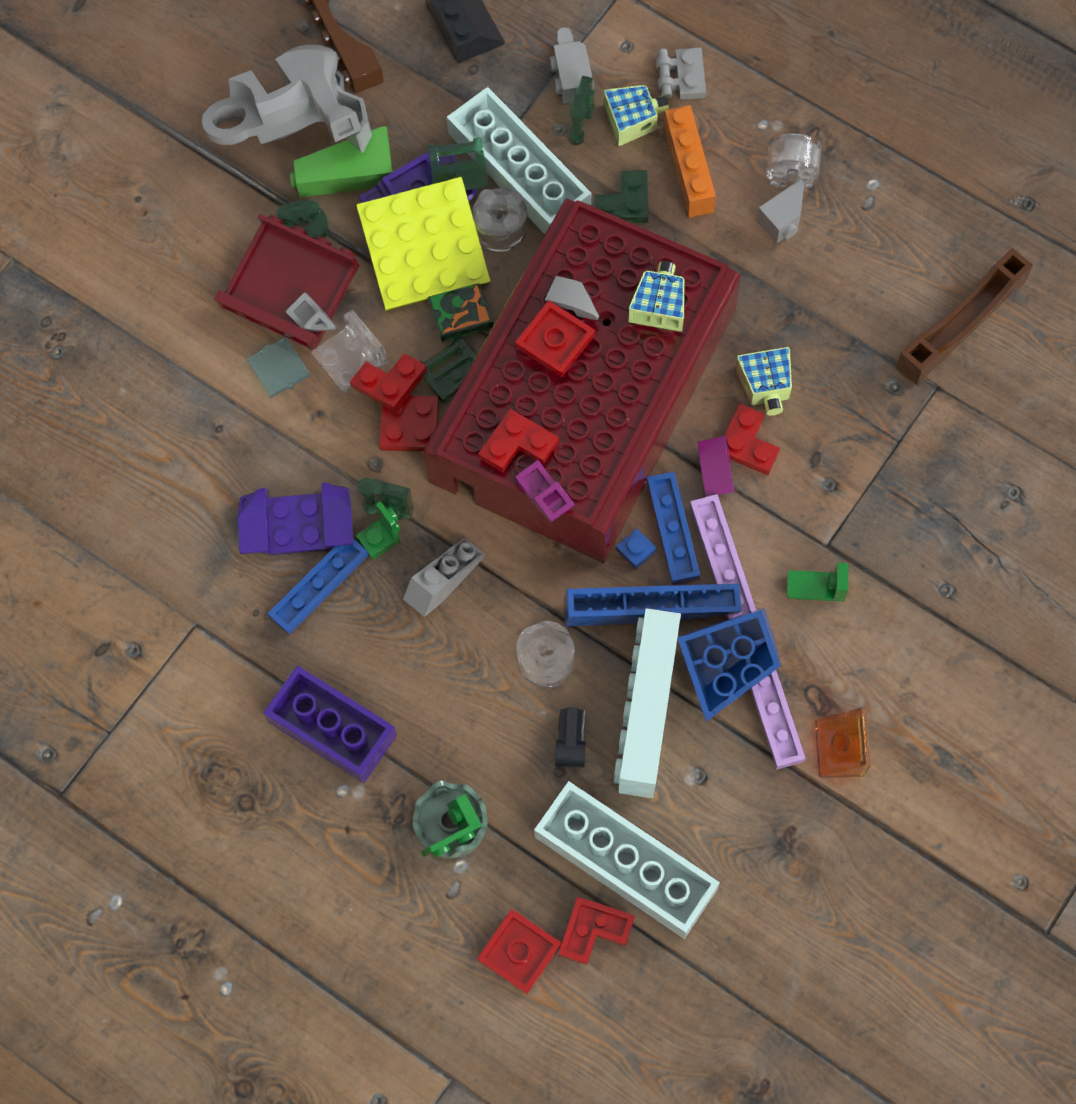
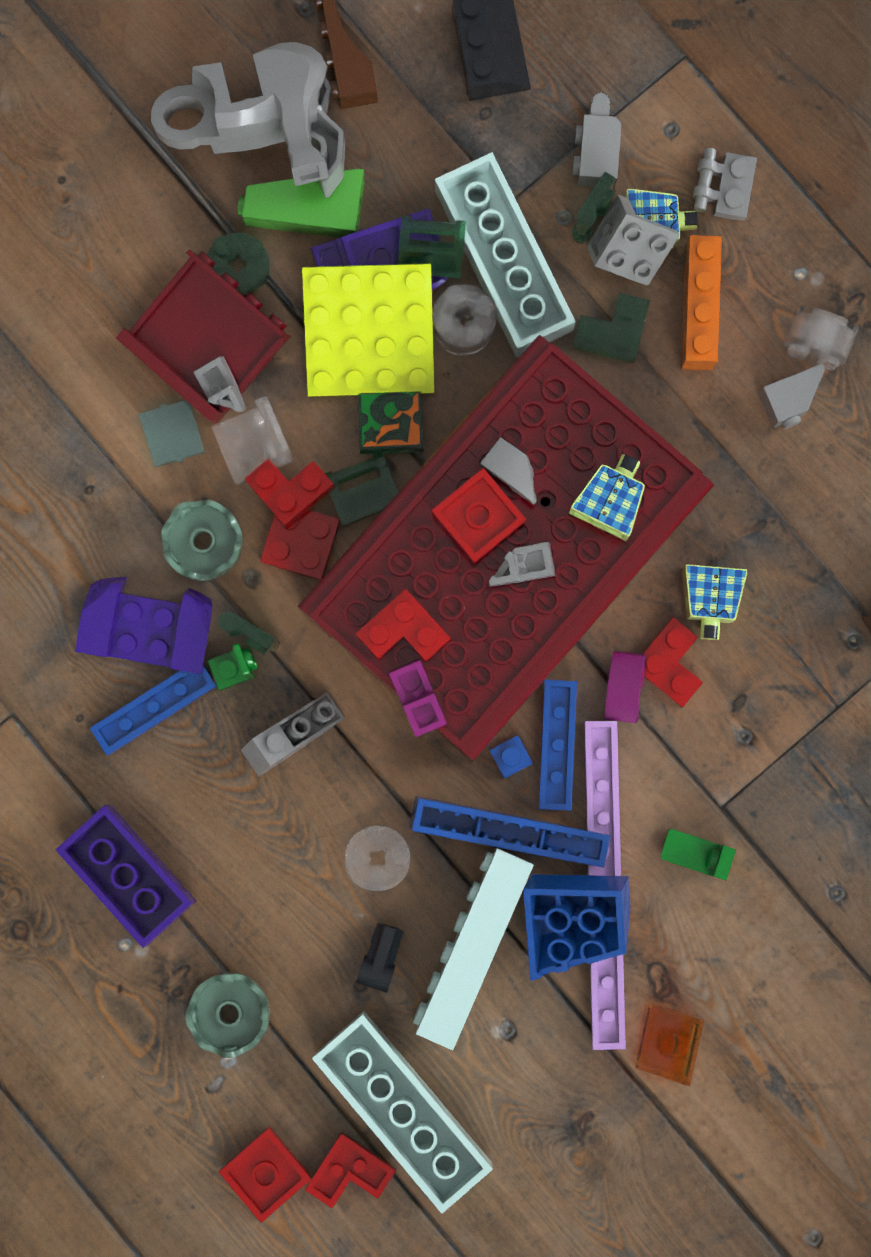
camera: 15 degrees right, 15 degrees up
(321, 423) = (180, 533): none -> sand green plate
(461, 815) = (238, 1018): green bracket -> none
(604, 368) = (525, 564): none -> light grey slope
(619, 128) = (630, 243): none -> light grey bracket

